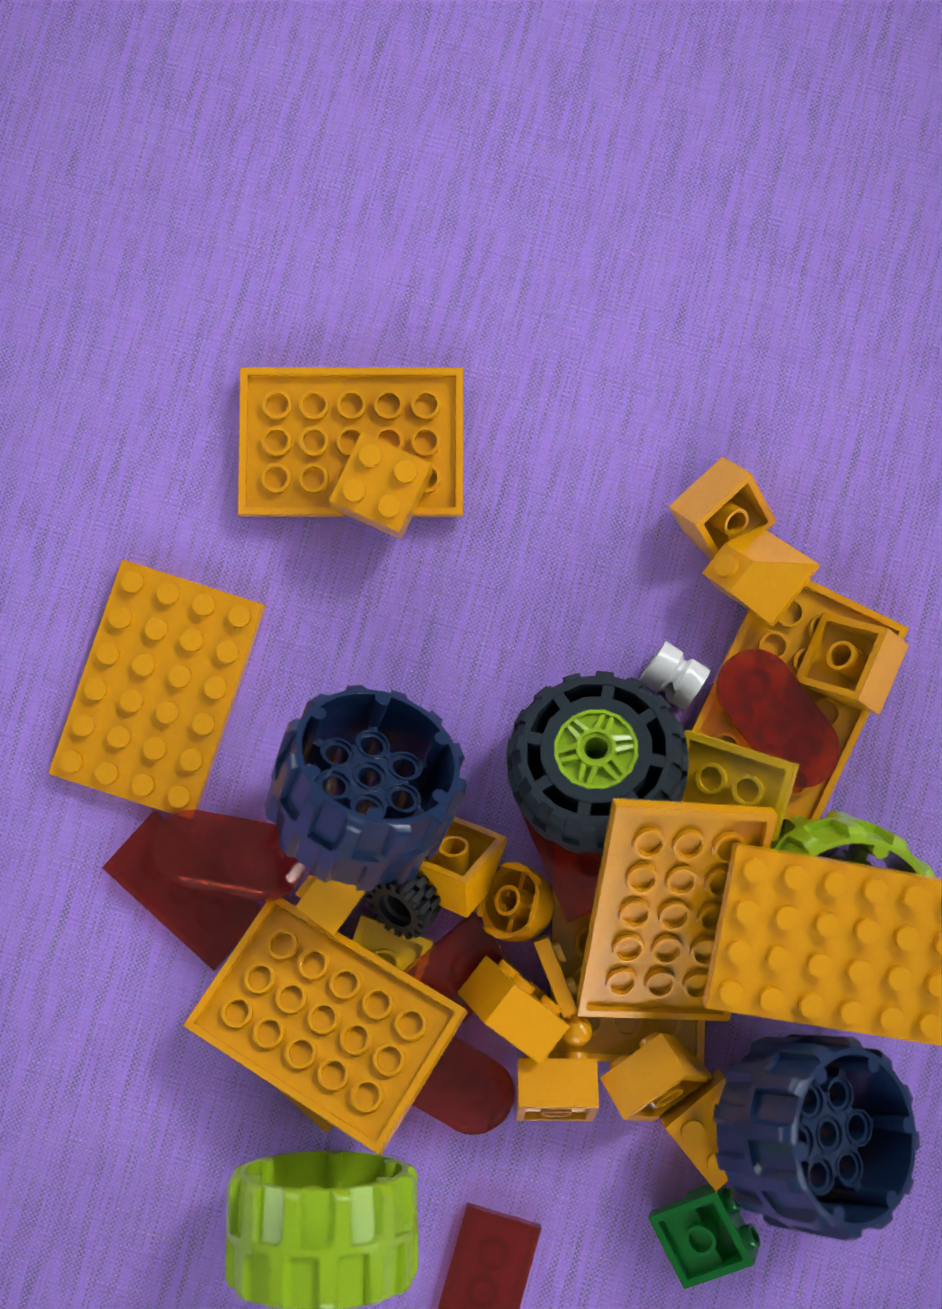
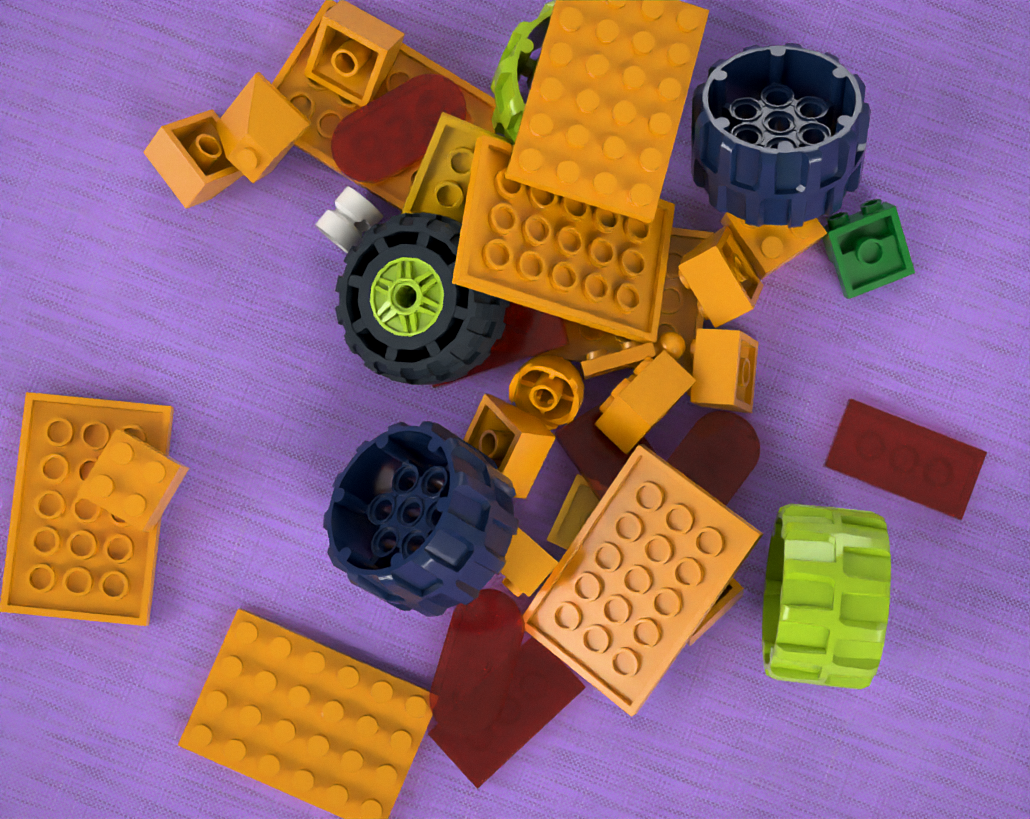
camera: 85 degrees left, 0 degrees up
(405, 906) = (548, 504): black tyre -> none

